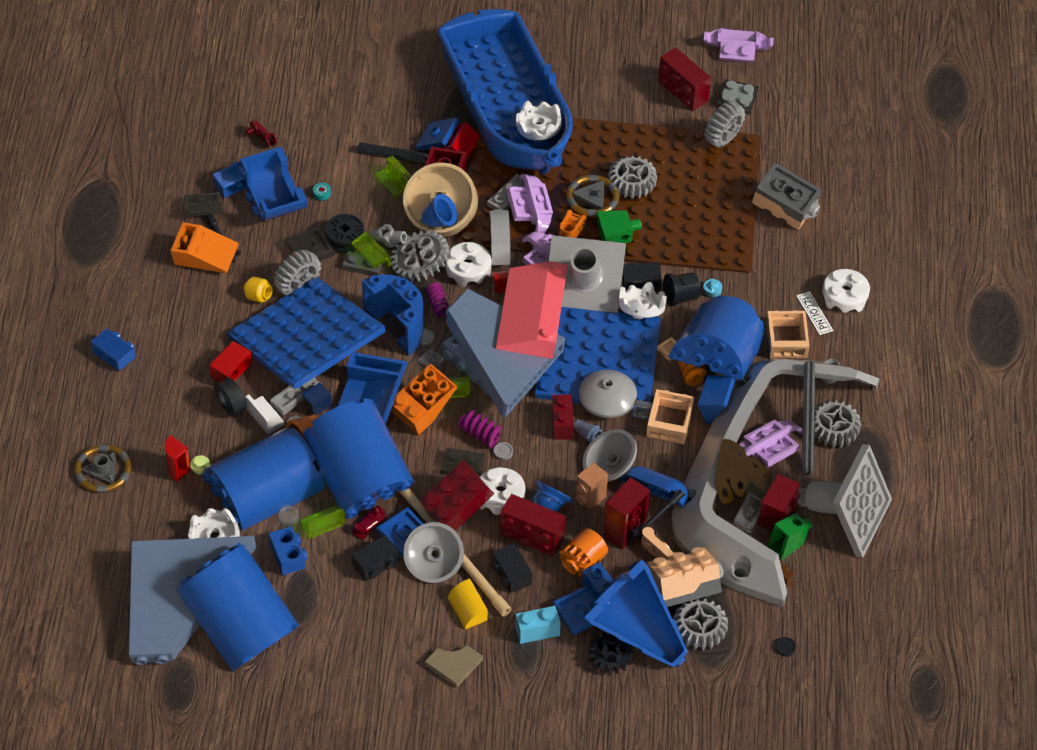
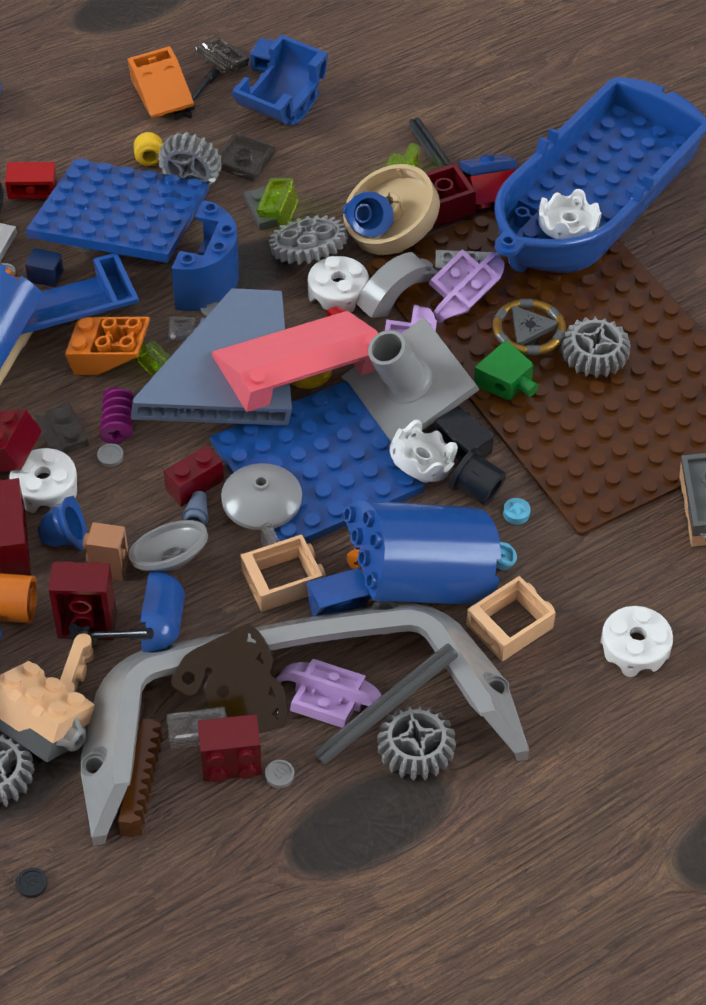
camera: 55 degrees right, 0 degrees up
(258, 130) = (354, 52): dark red piece -> none
(290, 398) = (21, 247): light grey hinge -> none
(321, 191) = (328, 128): teal tile -> none
(342, 231) = (286, 163): black wheel -> none
(388, 236) = (311, 202): light grey axle -> none
(437, 299) = (273, 280): magenta piece -> none
(572, 224) = (468, 334): orange piece -> none
(789, 535) = (196, 787): green torso -> none
(814, 313) = (578, 632): white sticker -> none
(856, 501) = (289, 825): light grey piece -> none

